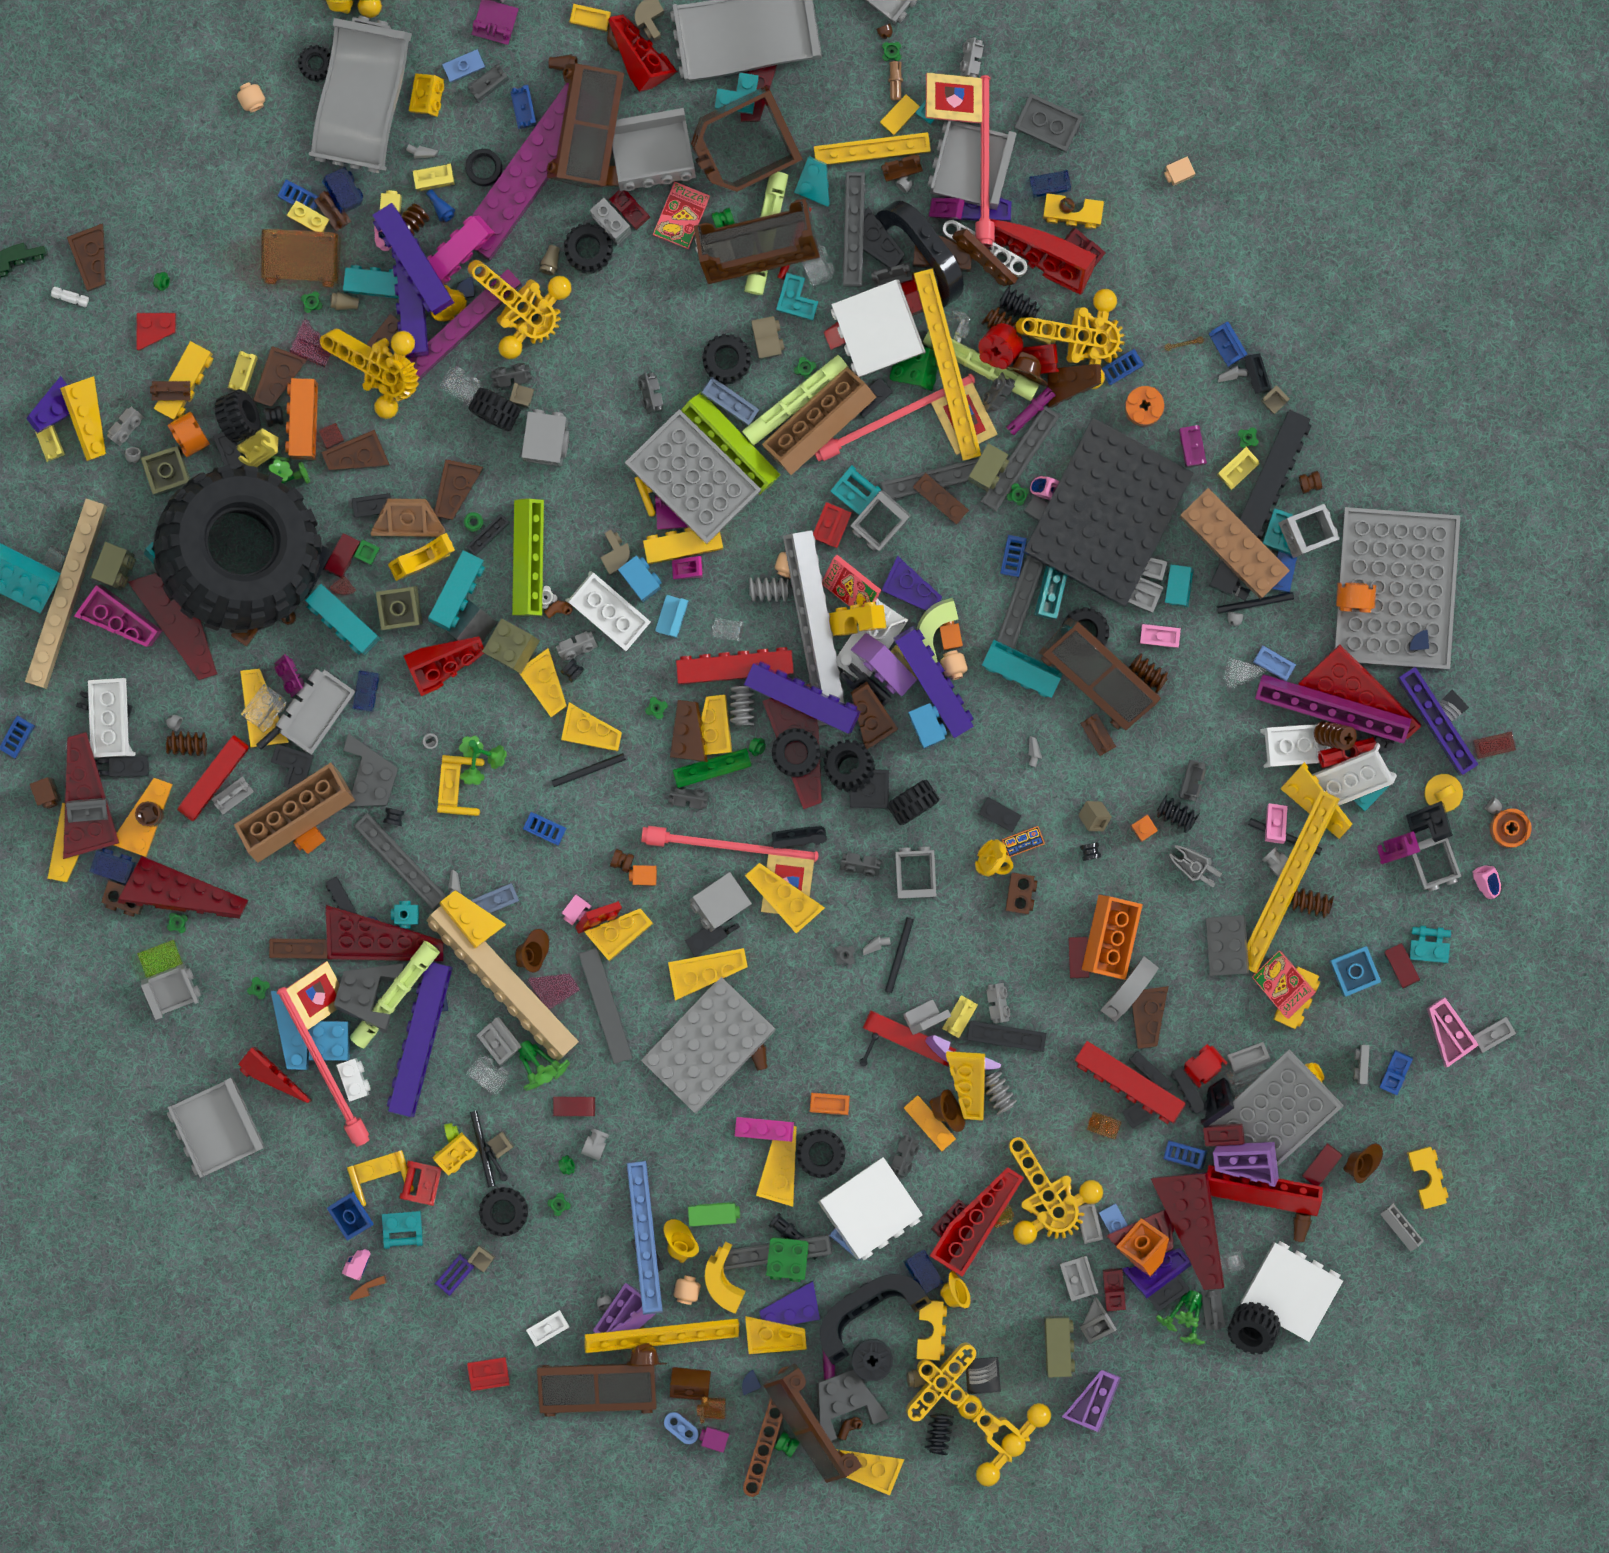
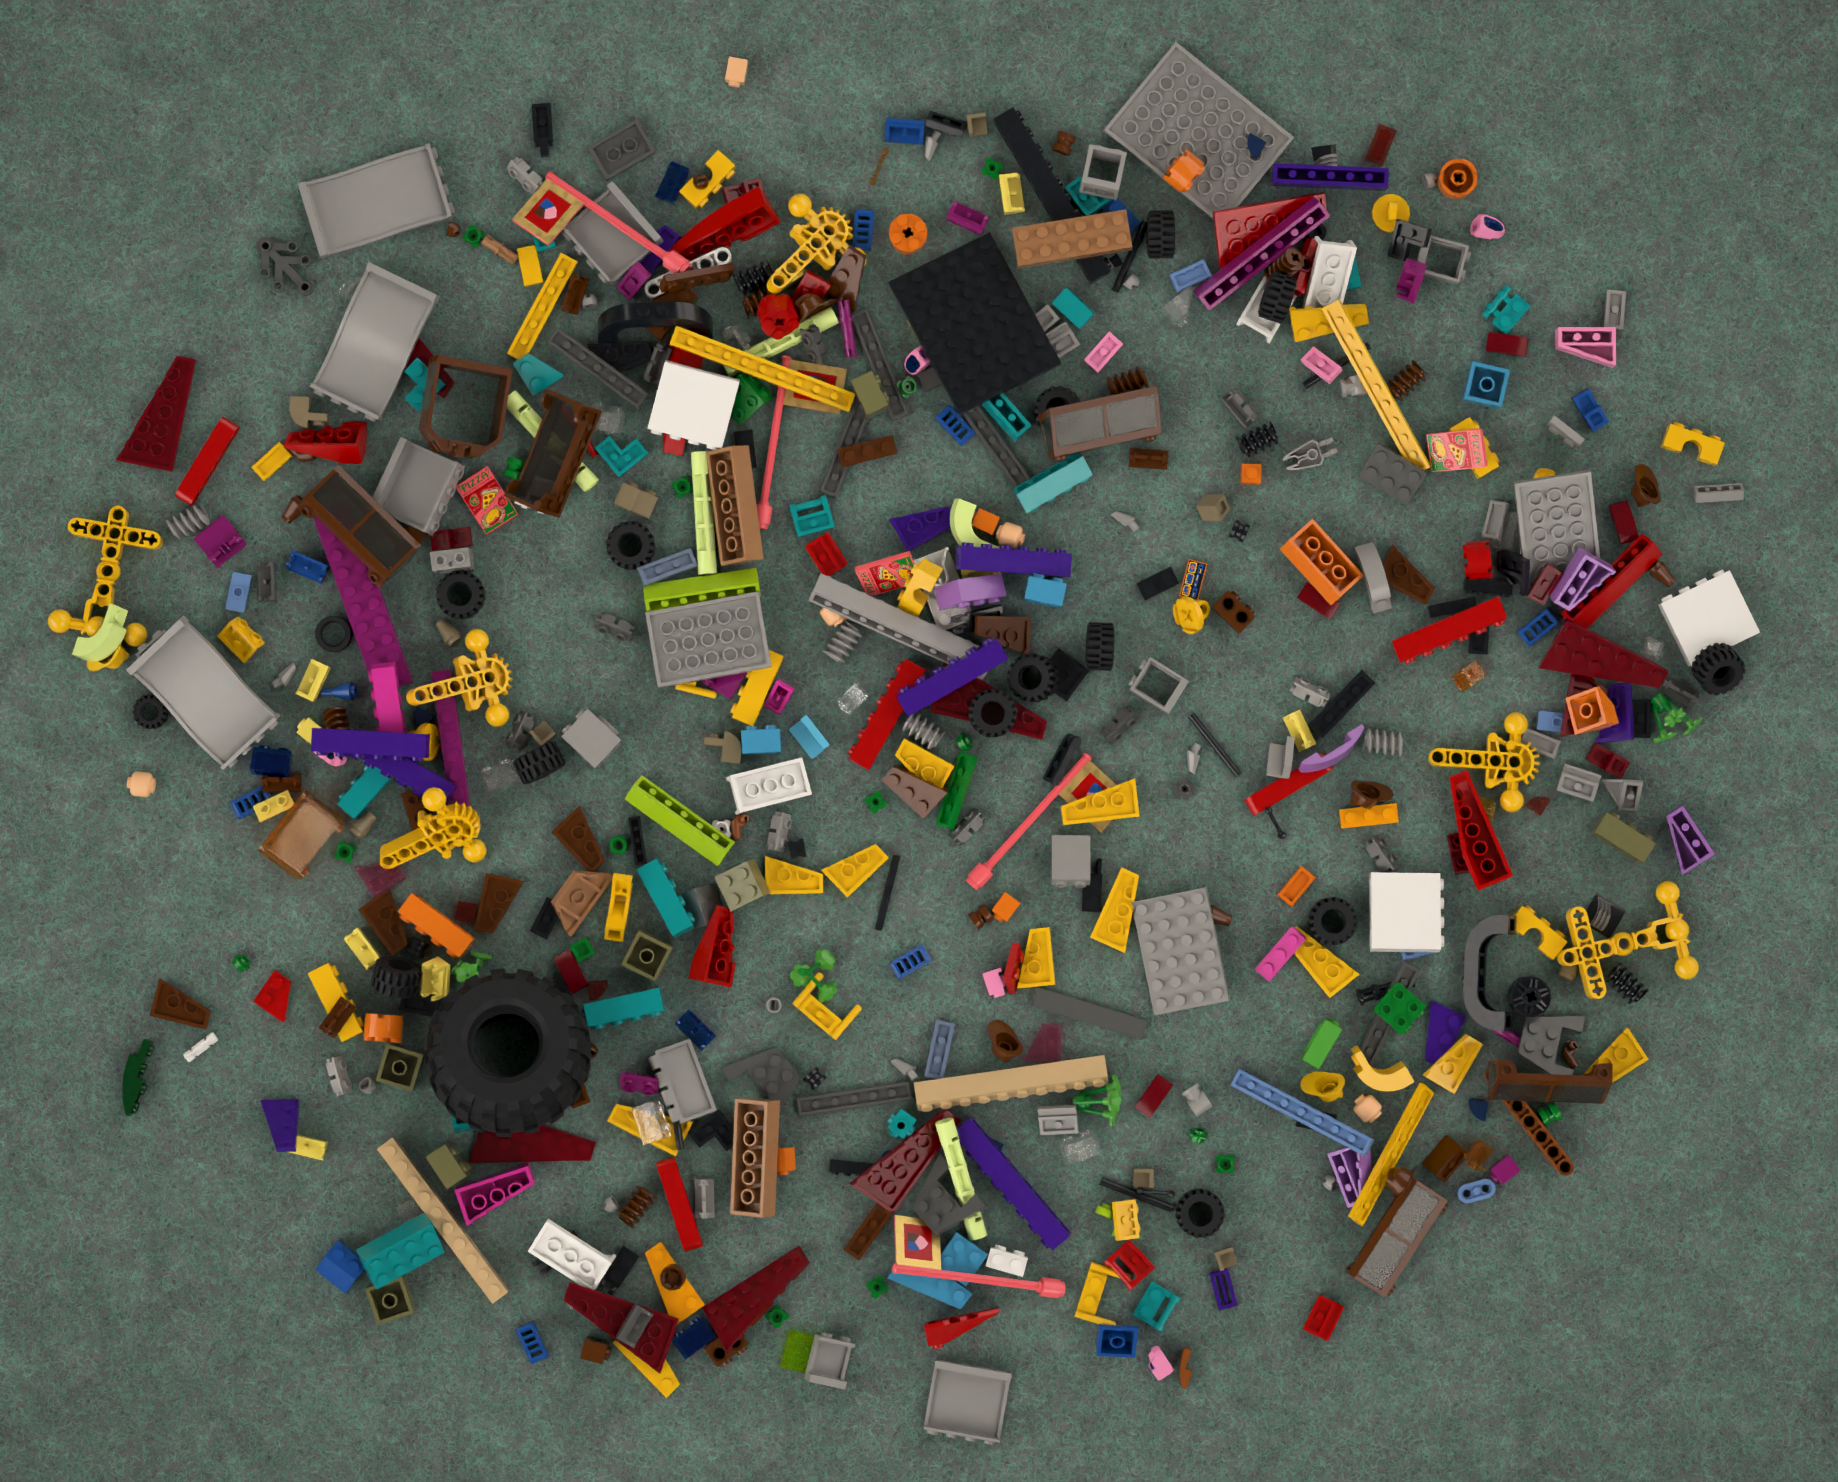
camera: 65 degrees left, 0 degrees up
(85, 415) = (305, 1101): yellow wing -> none
(470, 918) = (945, 1072): yellow wing -> none
(547, 1328) = (1319, 1243): white plate -> none
(860, 532) = (845, 494): light grey window -> none
(923, 1271) = (1485, 904): clear blue hinge -> none
(955, 1292) = (1521, 890): yellow piece -> none
(969, 1082) = (1358, 759): yellow wing -> none
(1021, 45) = (542, 127): none -> black hinge
(1037, 1257) = (1537, 804): none -> clear red tile
(1290, 614) = (1160, 234): none -> black tyre
(1304, 746) = (1277, 297): none -> black tyre

